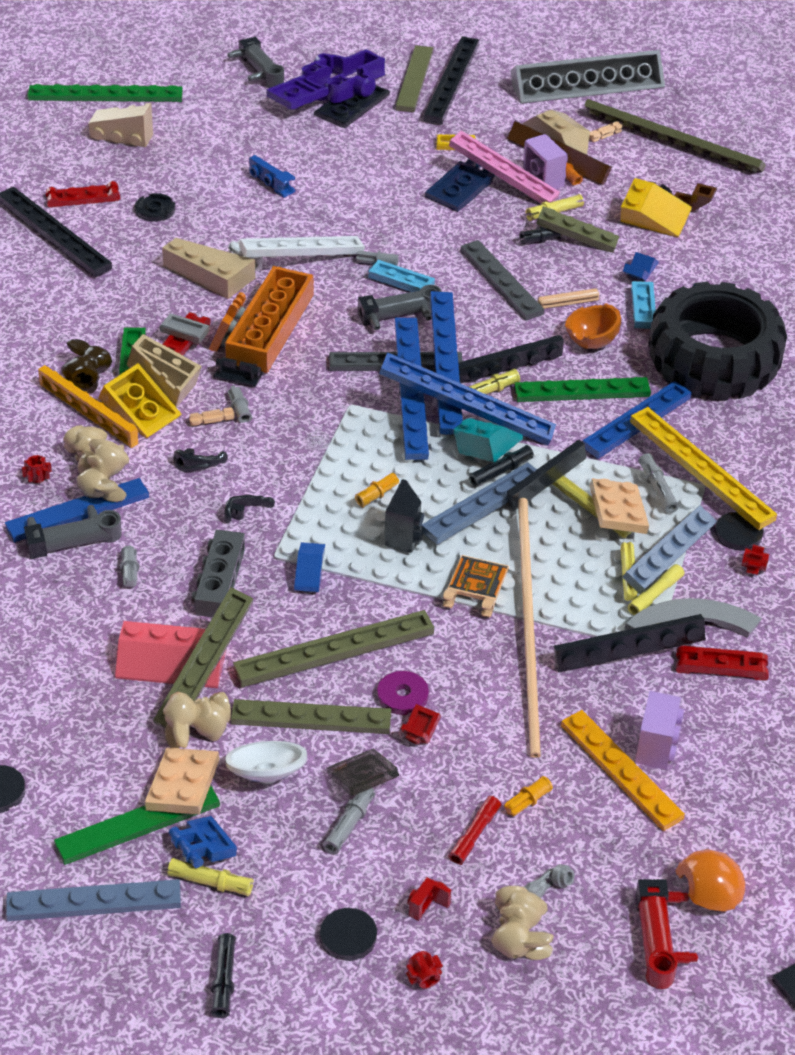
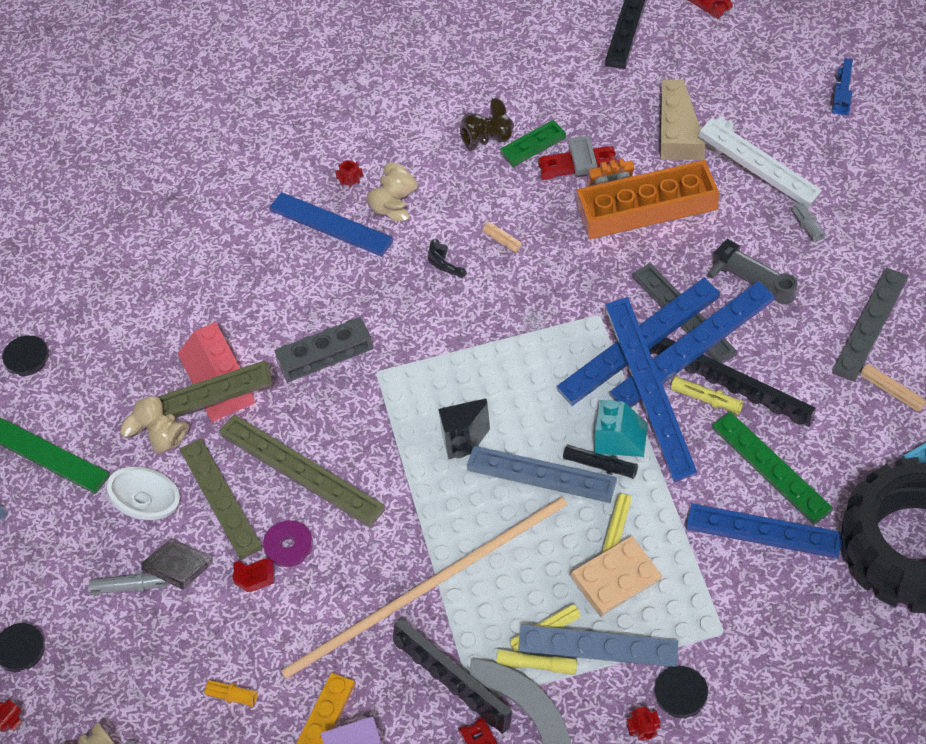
camera: 65 degrees right, 10 degrees up
(88, 406) = (443, 161): light orange plate -> none
(99, 527) = (275, 224): dark grey piece -> none
(105, 463) = (370, 205): tan animal -> none
(129, 566) = (291, 291): light grey axle -> none
(139, 401) = (474, 183): yellow slope -> none
(161, 207) = (731, 50): black tile -> none
(167, 368) = (515, 175): tan wedge -> none
(182, 781) = (94, 456): light nougat plate -> none
(209, 840) = (48, 508): blue plate -> none
(219, 879) = (20, 537): light yellow pin -> none
(236, 505) = (405, 311): black piece -> none
(239, 404) = (531, 245): light grey axle -> none
(244, 374) = (568, 220): black hinge -> none
(309, 567) = (368, 403): blue slope -> none
(376, 490) = (495, 392): light orange axle -> none
(399, 276) = (797, 252): medium azure plate -> none
(429, 891) = (77, 676): red bracket -> none
(467, 841) = (156, 676): red piece -> none
(476, 580) = (447, 524): flag -> none
(547, 474) = (605, 499): black tile -> none
(594, 325) = (856, 426): orange cylinder -> none
(668, 500) = (686, 584): light grey pin -> none
(703, 468) = (728, 618): yellow plate -> none

